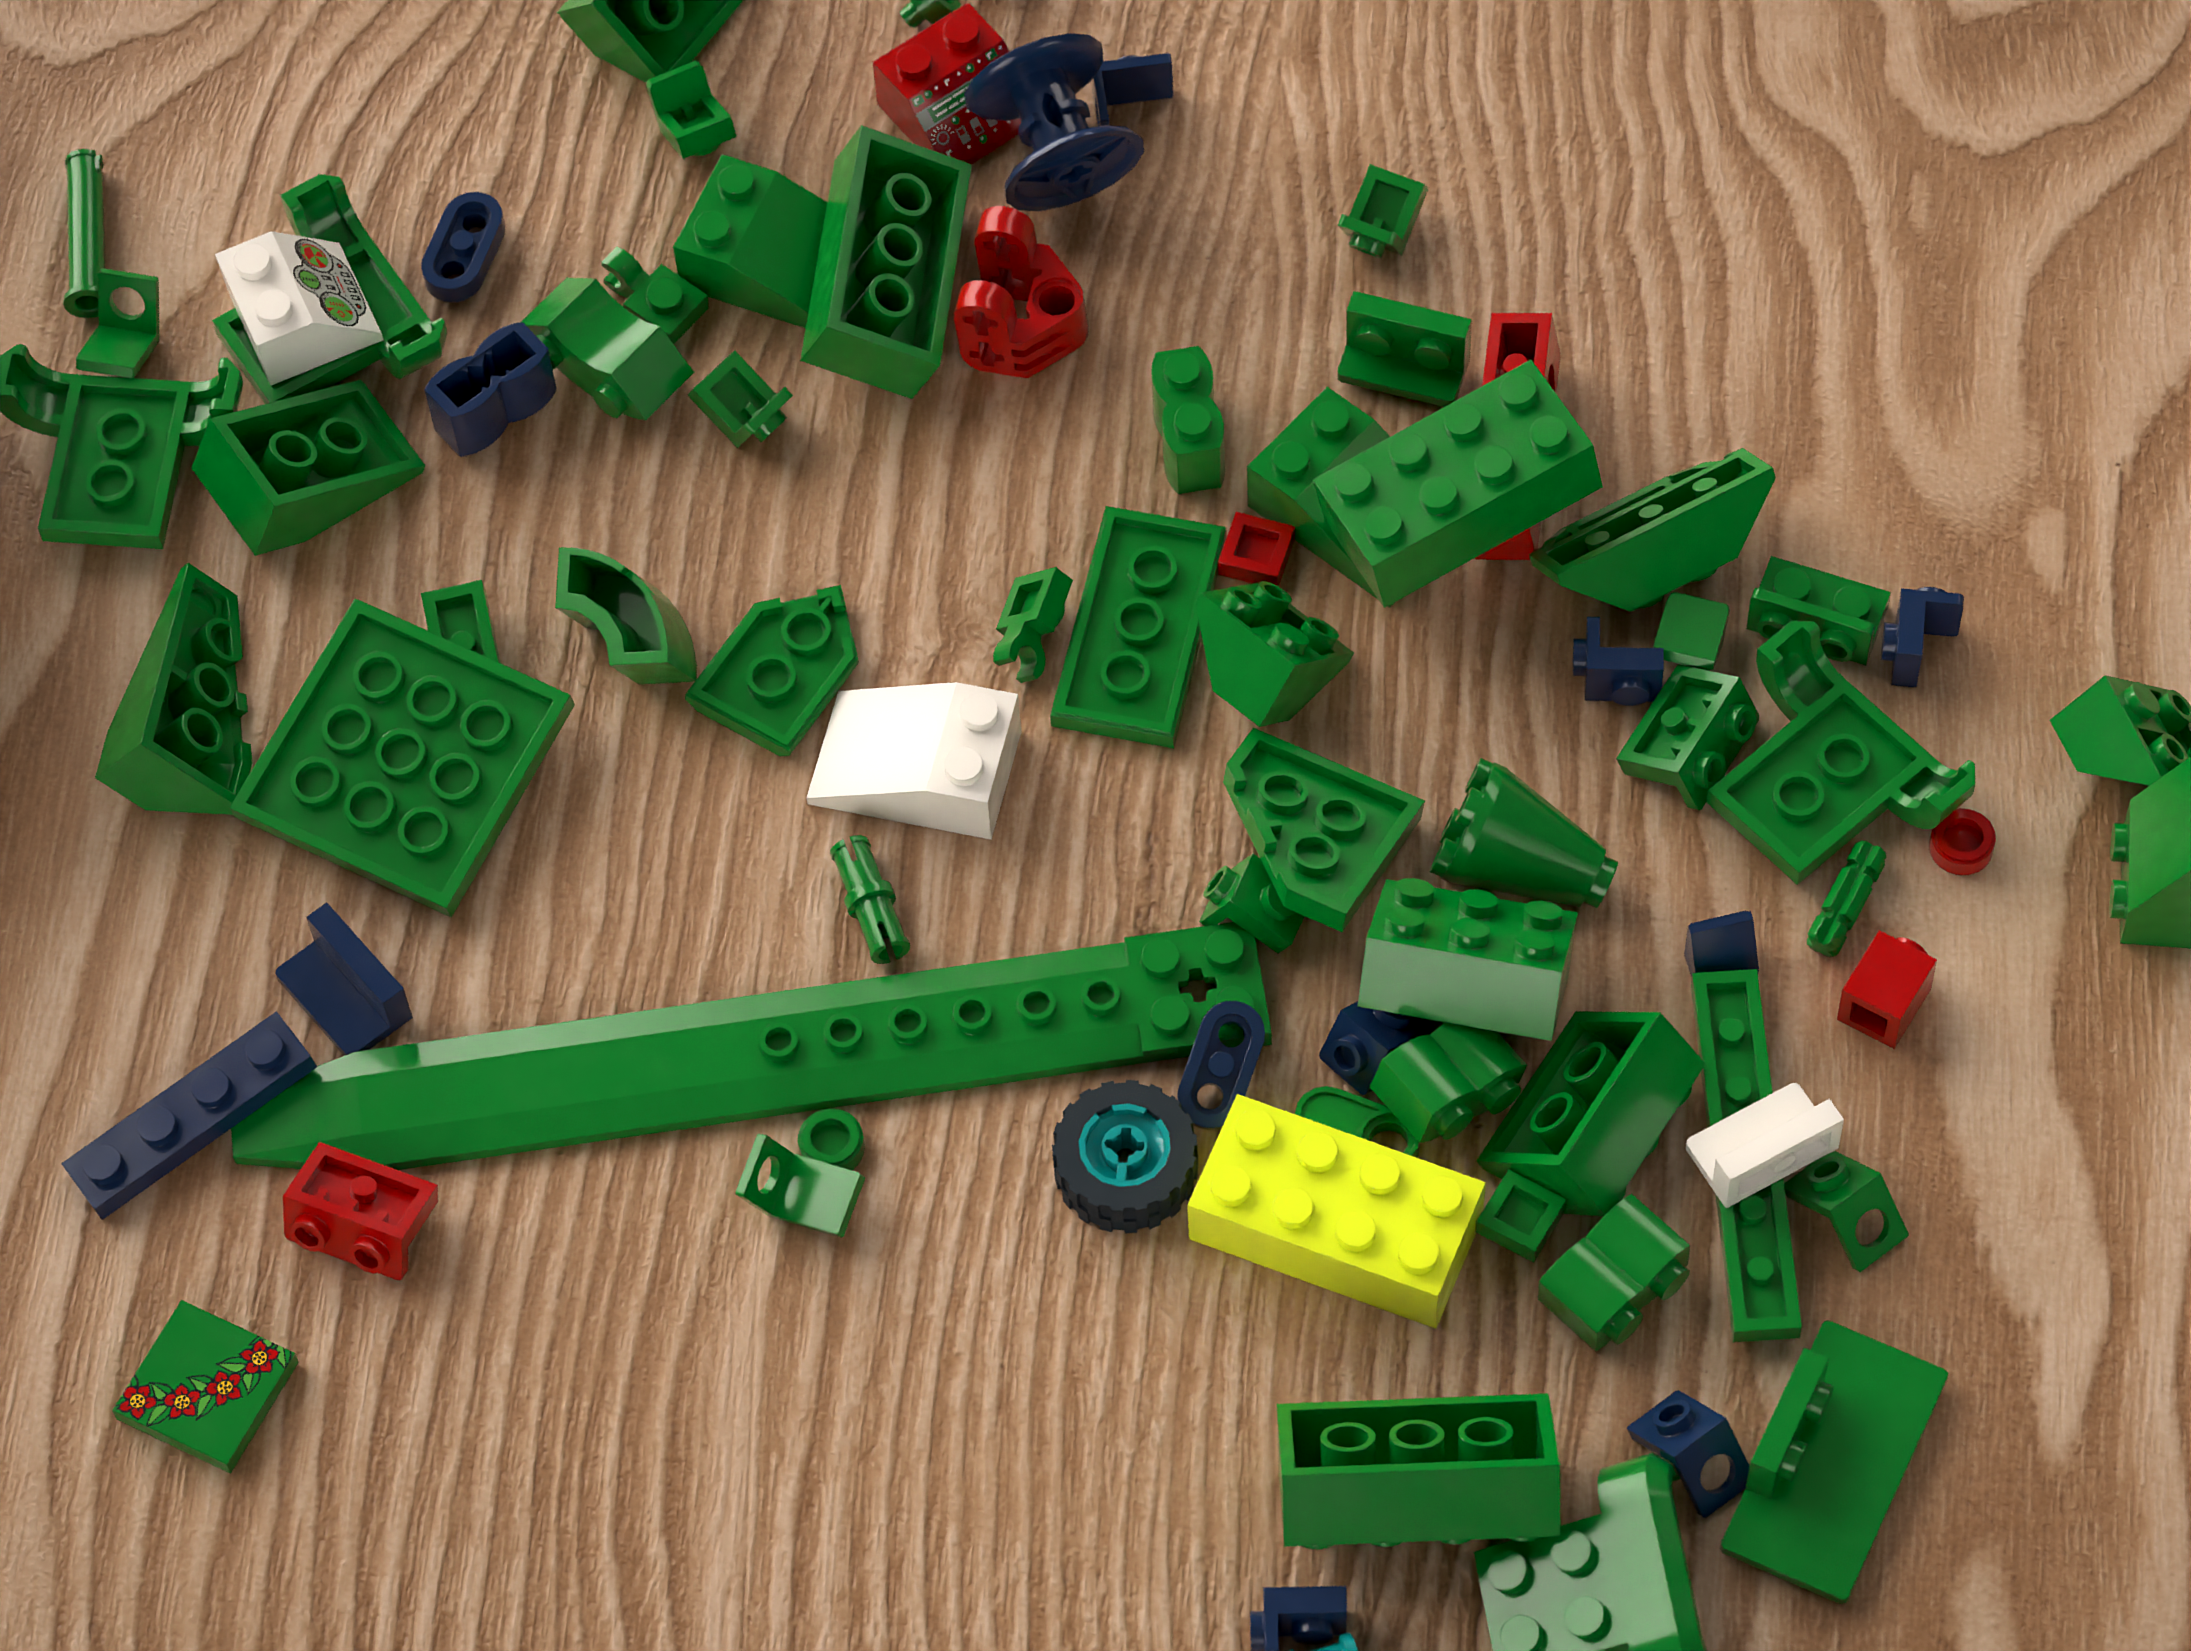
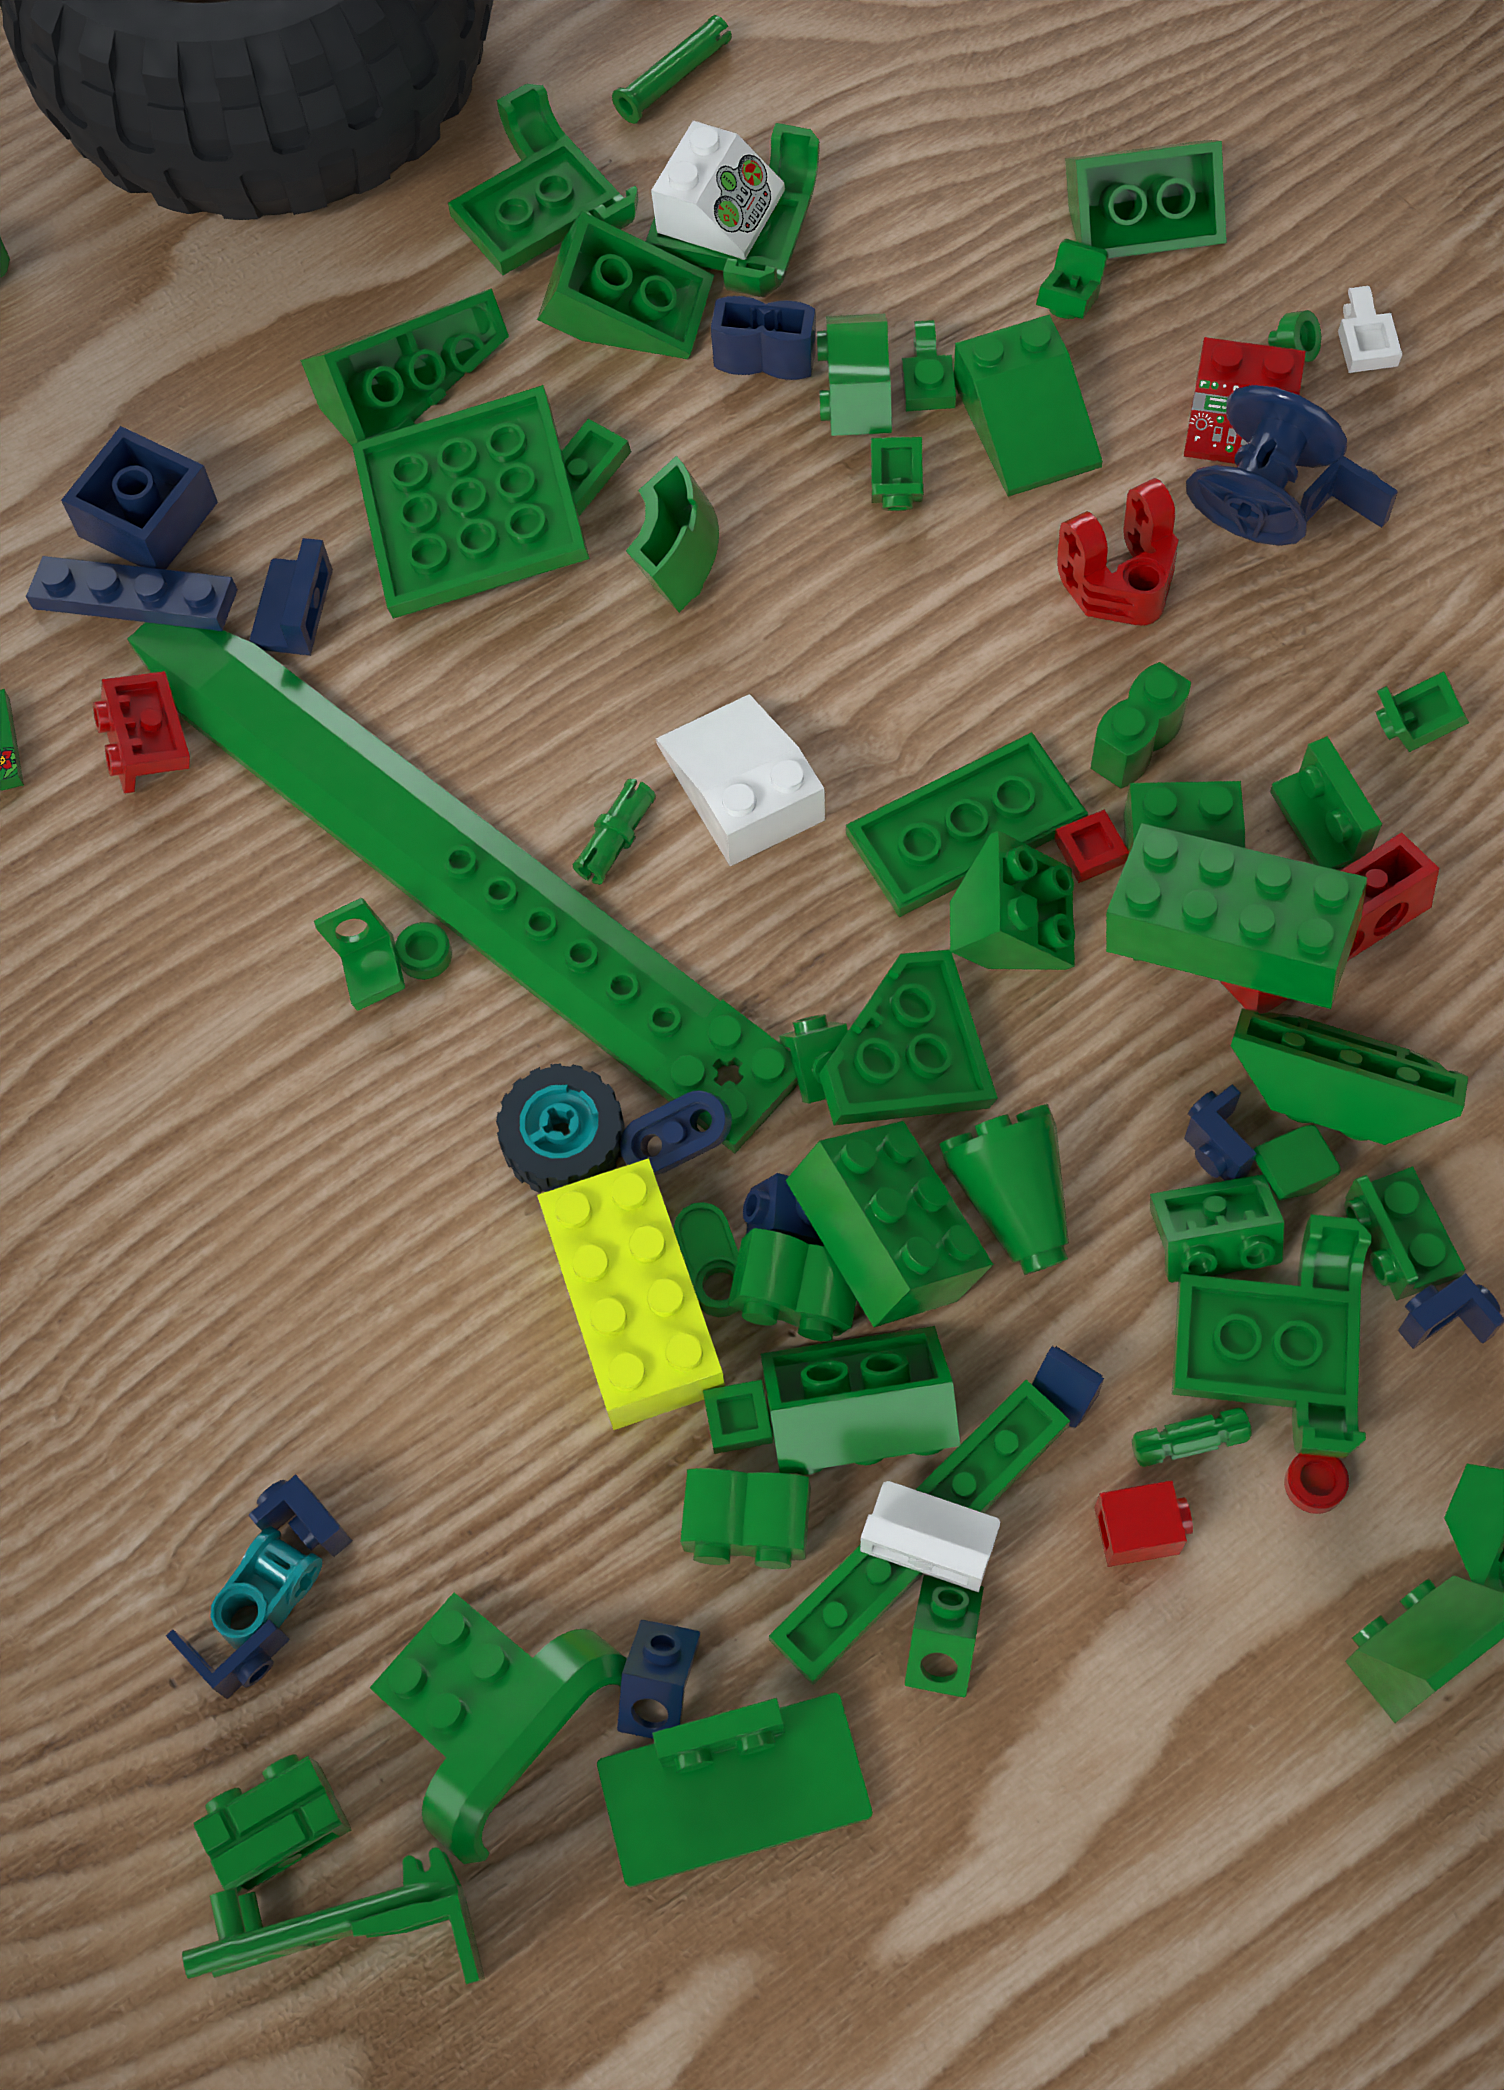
camera: 50 degrees right, 5 degrees up
(104, 1028) = (140, 500): none -> dark blue brick
(122, 340) = (621, 142): green bracket -> none
(460, 252) = (851, 250): dark blue plate -> none
(779, 669) = (734, 649): green tile -> none
(886, 262) = (1068, 461): green brick -> none
(1030, 611) = (906, 754): green plate -> none
(1418, 1470) = (464, 1505): green brick -> none

